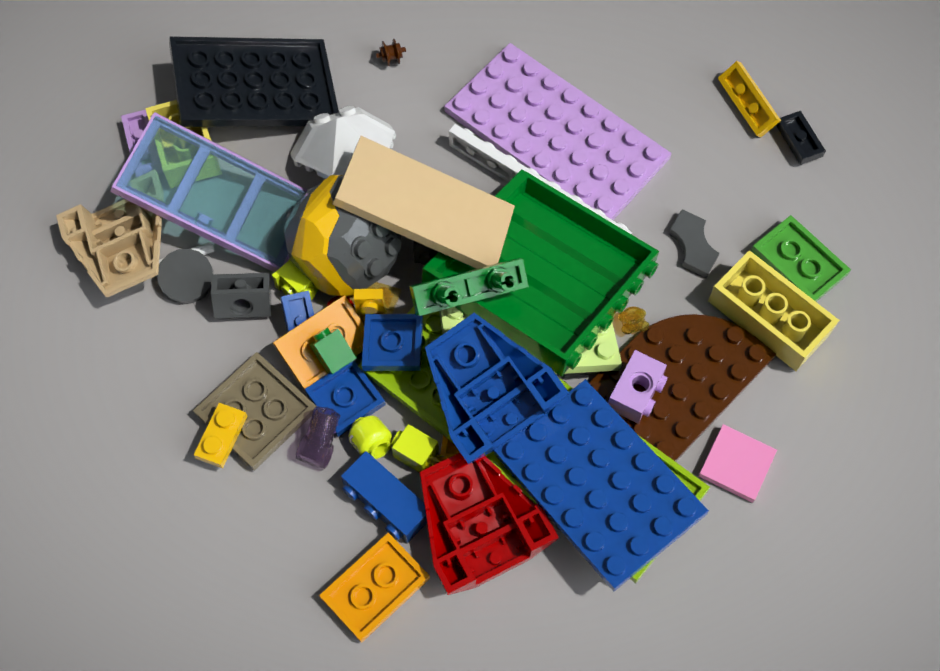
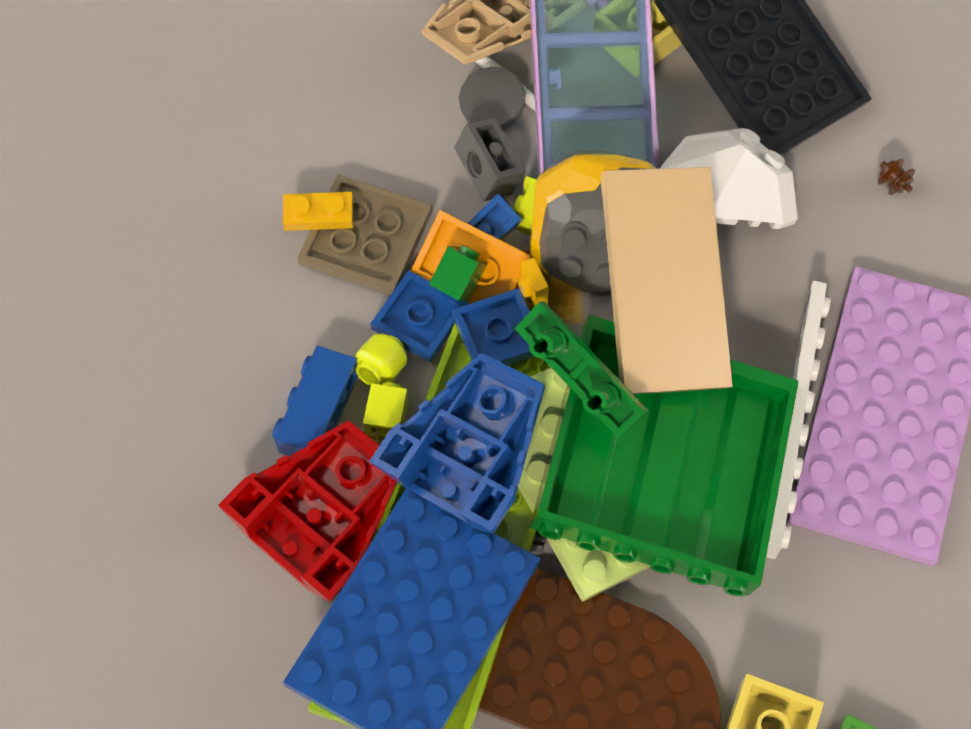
camera: 70 degrees right, 0 degrees up
(317, 445) = (349, 308): clear purple piece -> none
(374, 587) = (211, 435): light orange plate -> none
(633, 314) = (668, 590): clear yellow plate -> none
(642, 371) = (583, 616): lavender brick -> none
(698, 254) = (802, 650): dark grey tile -> none

